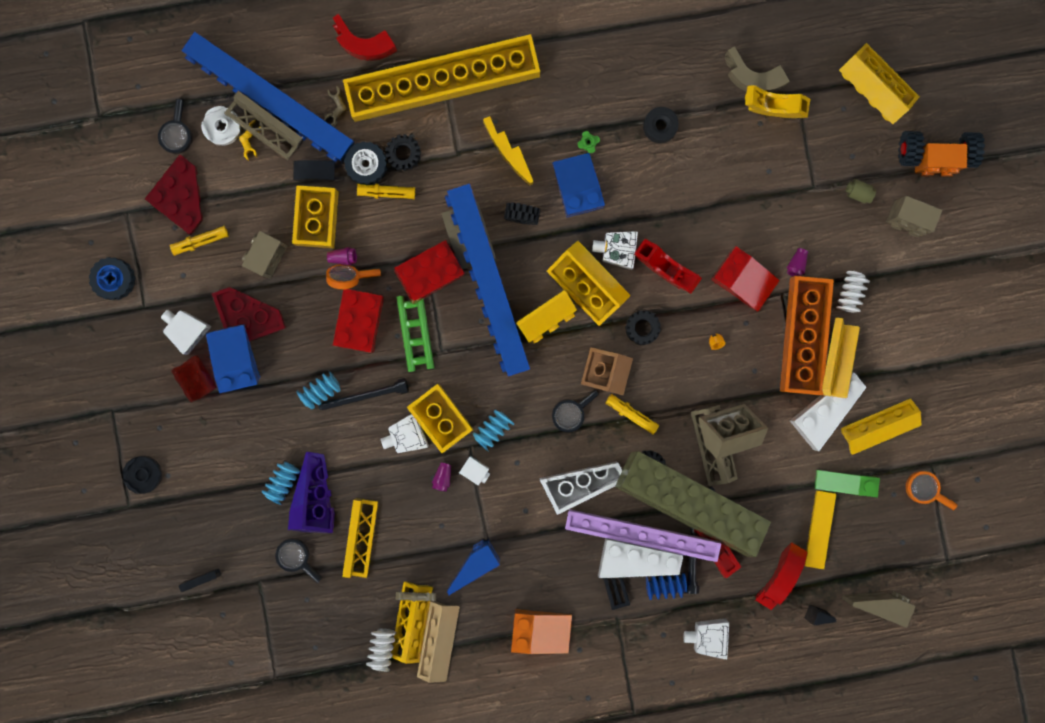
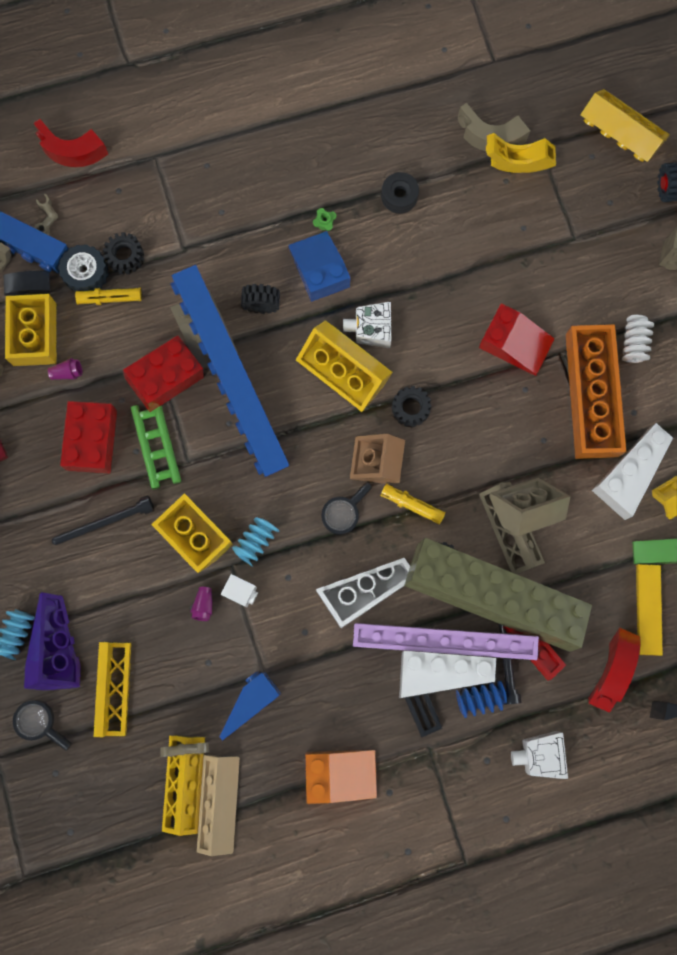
camera: 15 degrees left, 10 degrees down
(319, 391) = (50, 521): medium azure piece -> none
(347, 276) = (73, 389): orange piece -> none
(381, 650) = (149, 823): white piece -> none
(405, 436) = (155, 560): white torso -> none
(442, 78) = (157, 171): yellow brick -> none
(512, 156) = (241, 241): yellow slope -> none
(547, 317) = (301, 405): yellow slope -> none
(666, 267) = (420, 334): red arch -> none
(716, 342) = (491, 412): light orange hinge -> none
(798, 263) = (571, 316): magenta cone -> none
(840, 359) = (638, 412): yellow panel -> none
(860, 191) = (626, 234): olive brick -> none

